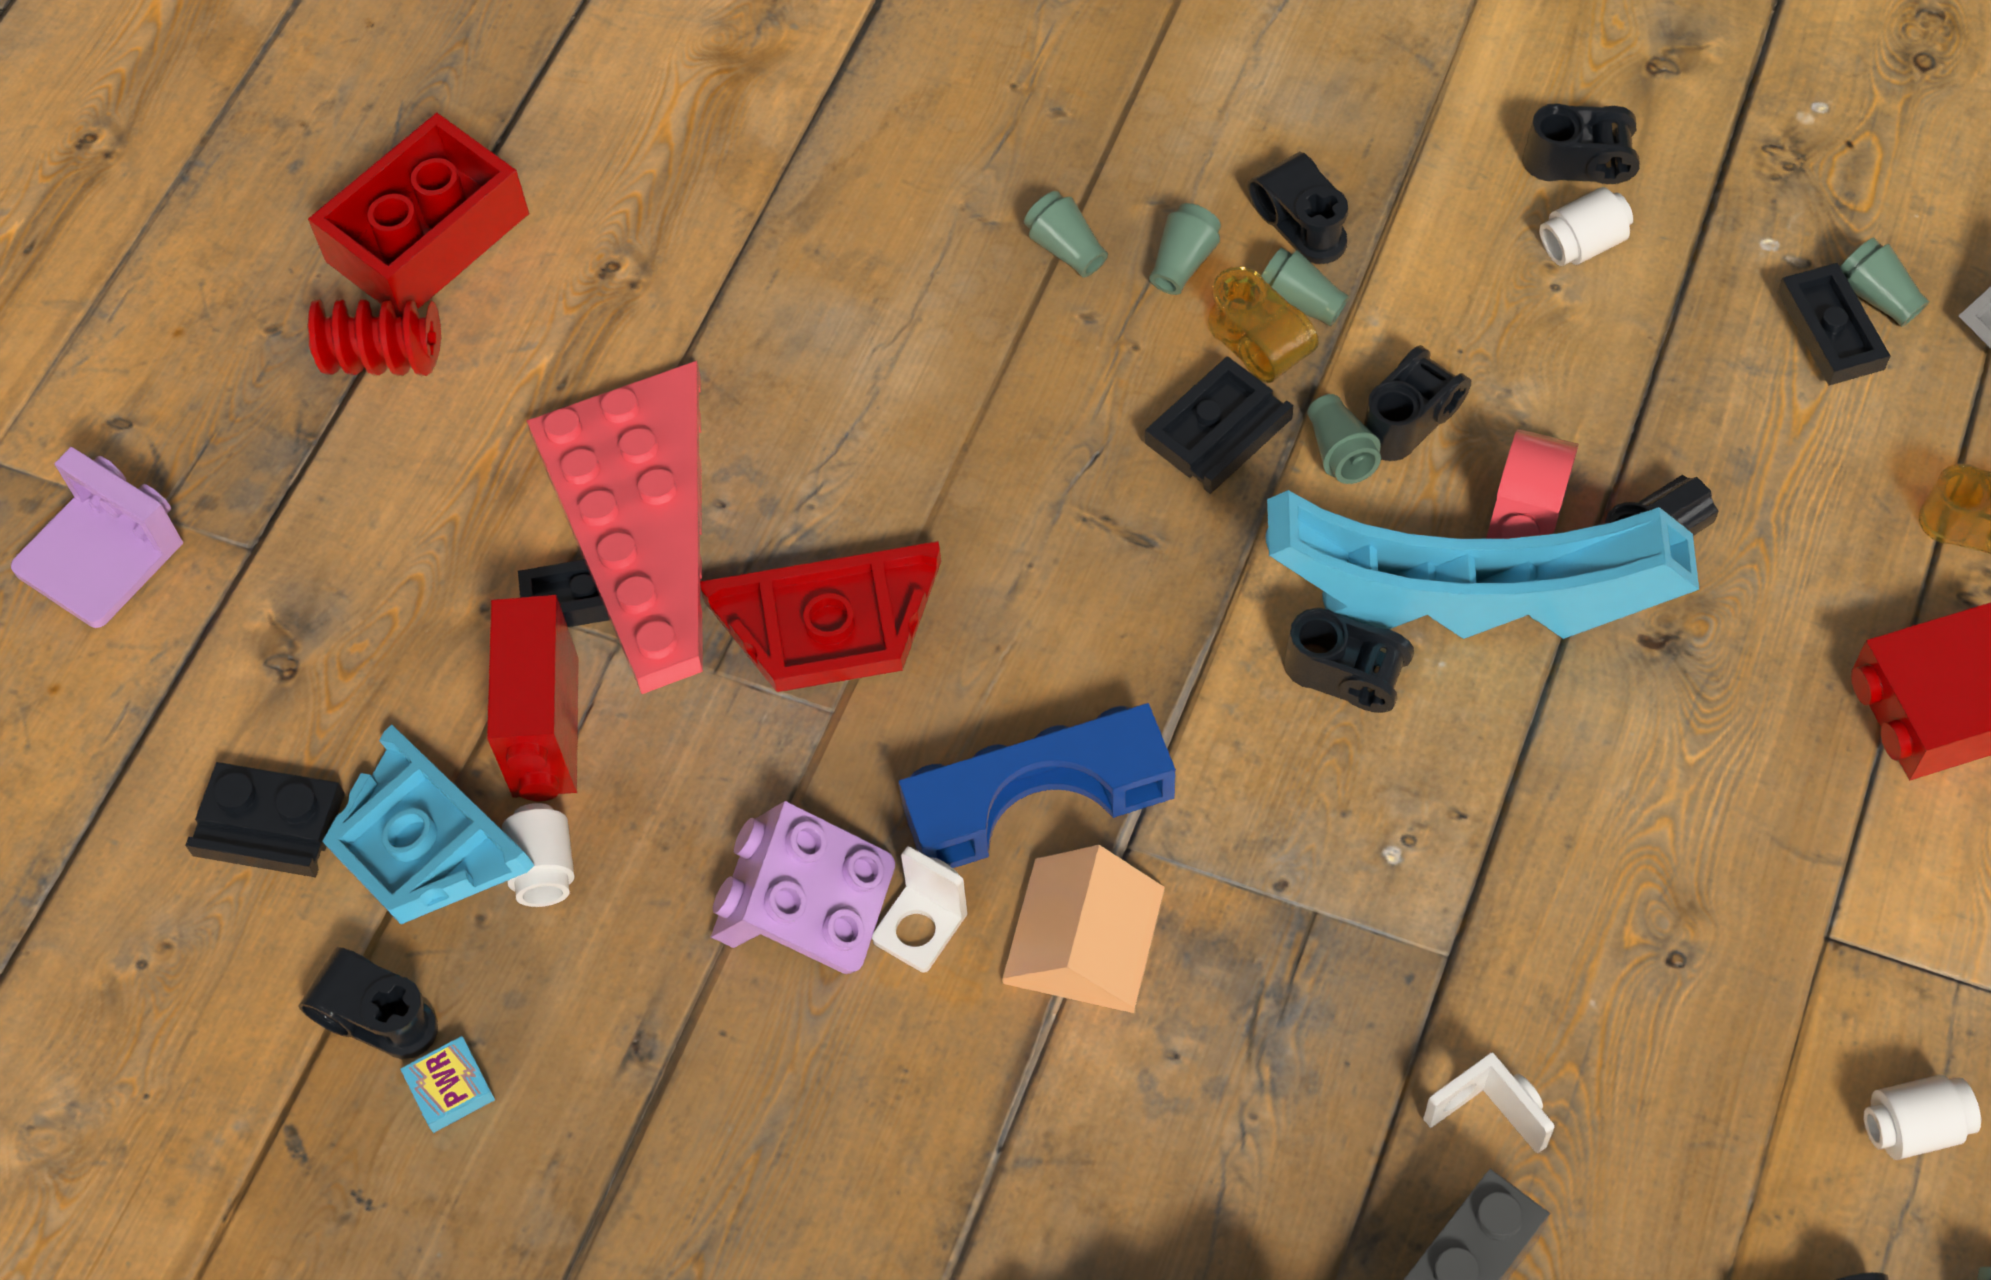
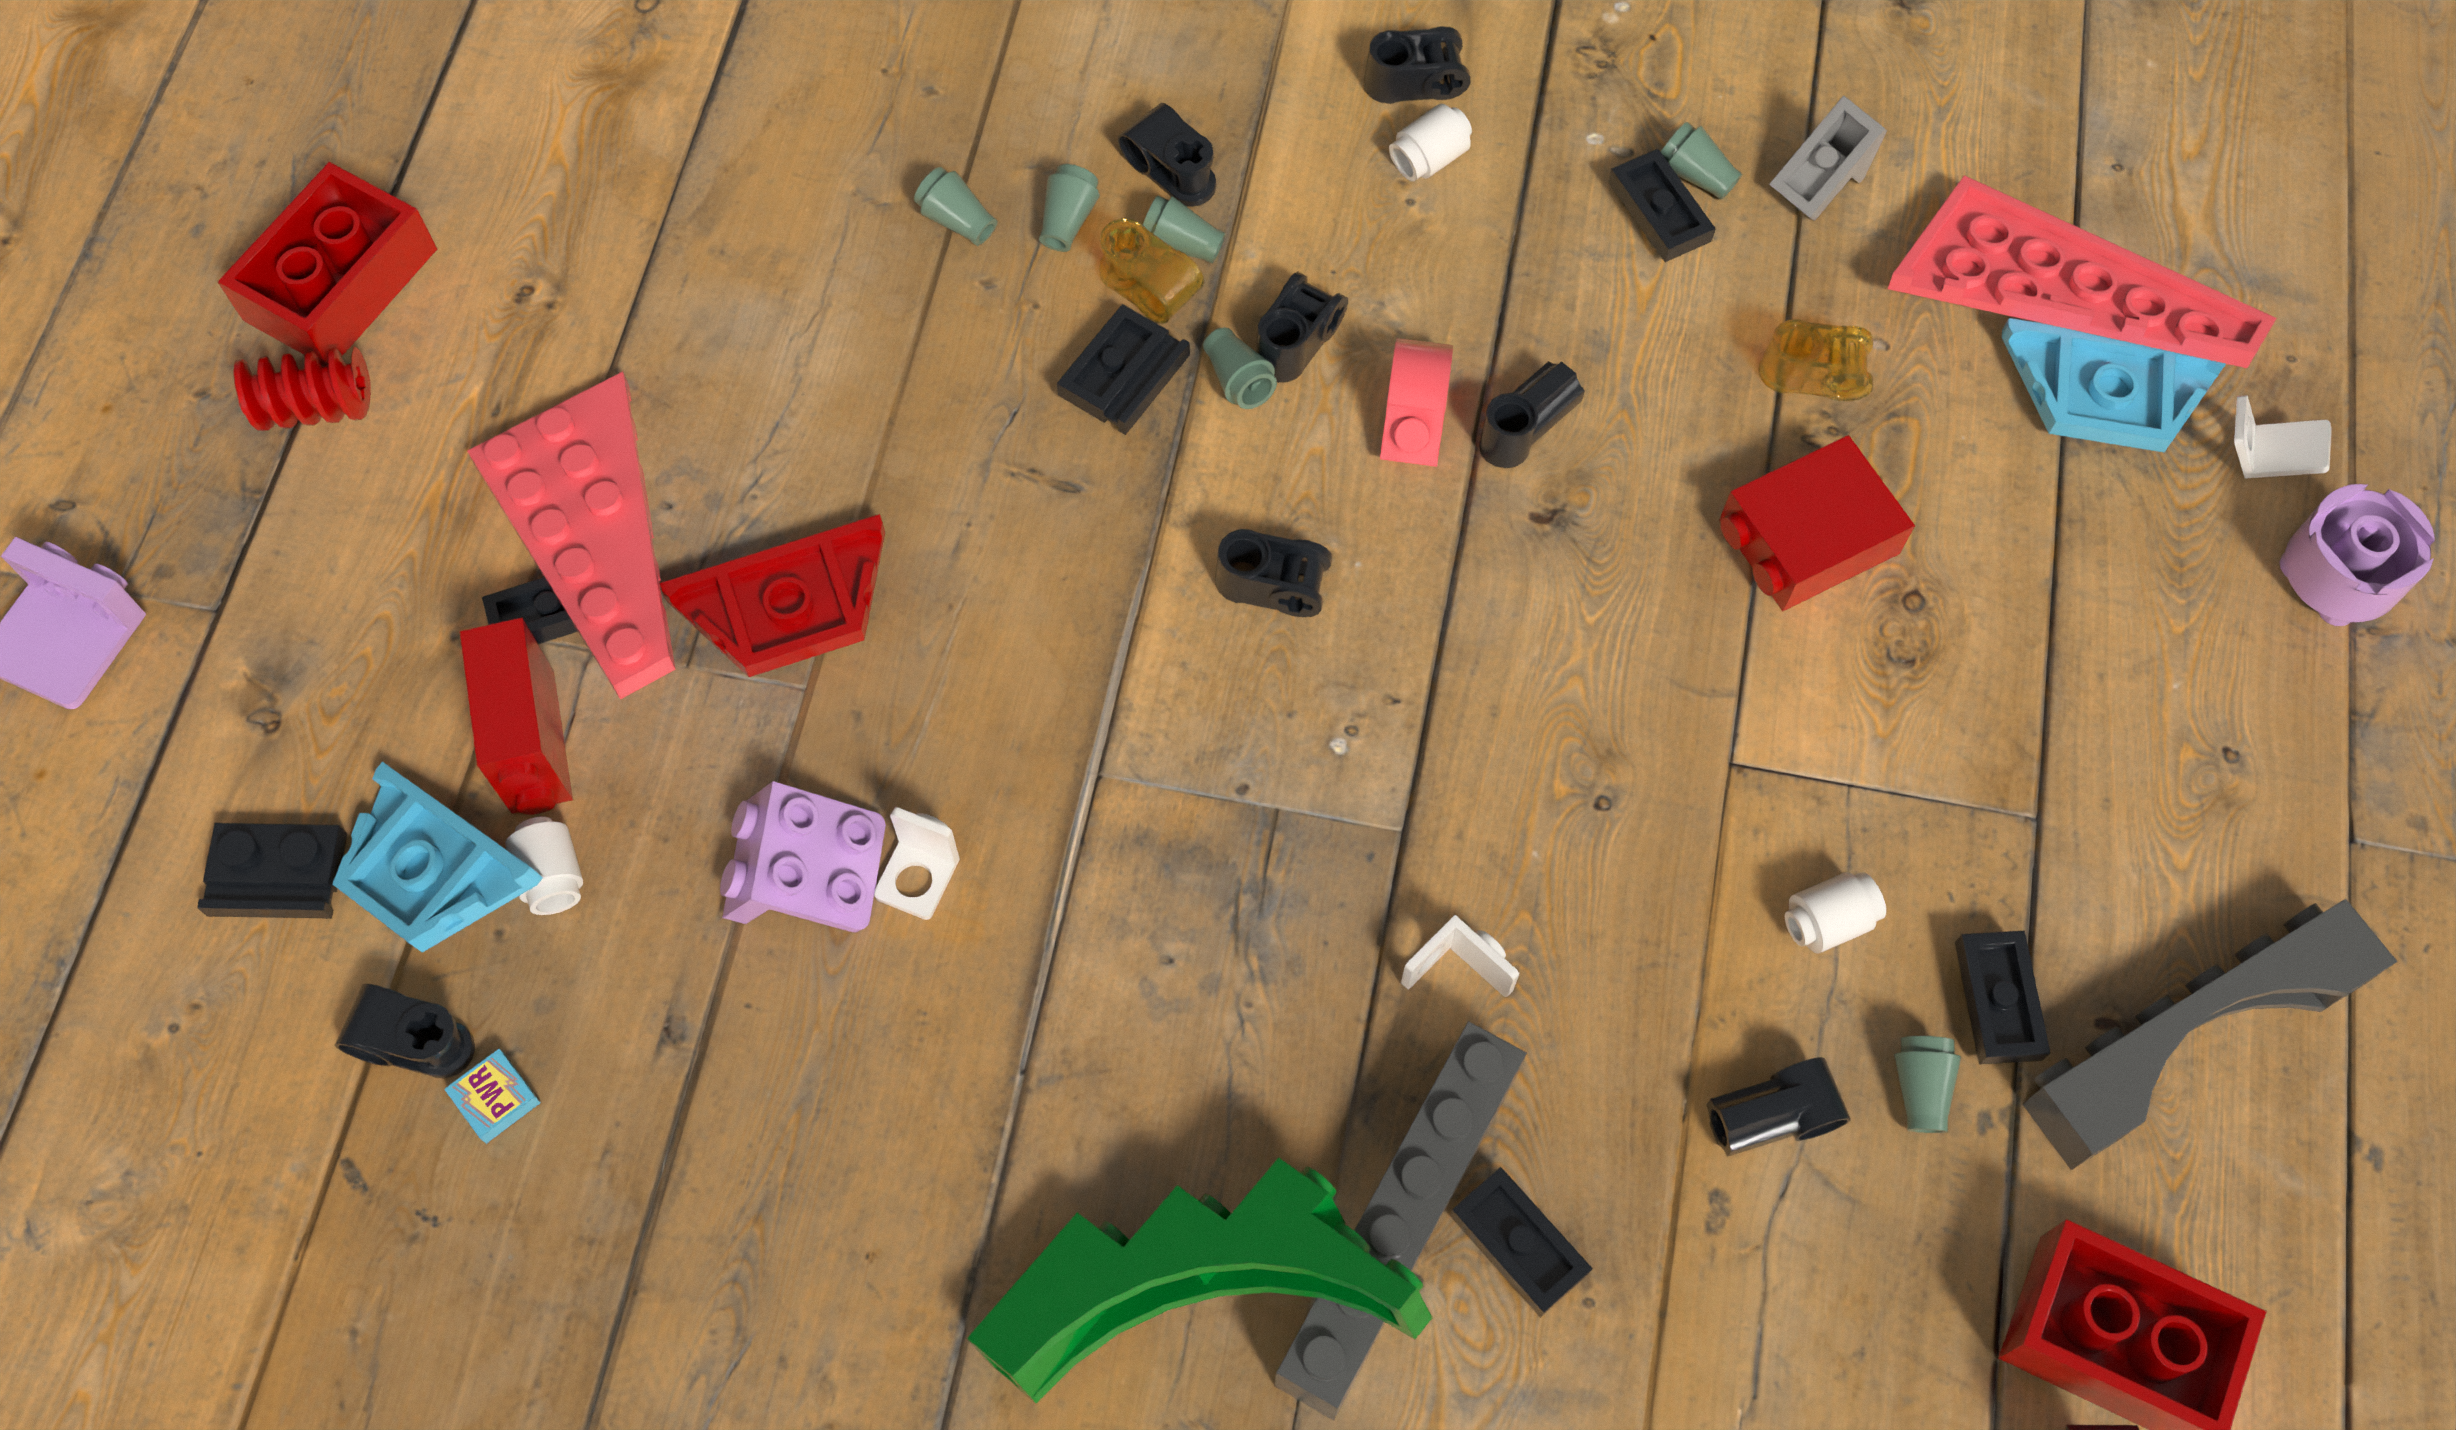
camera: 15 degrees left, 5 degrees up
(1085, 929) = (1070, 857): light nougat slope -> none
(1111, 760) = (1070, 697): blue arch -> none
(1478, 584) = (1383, 486): medium azure arch -> none

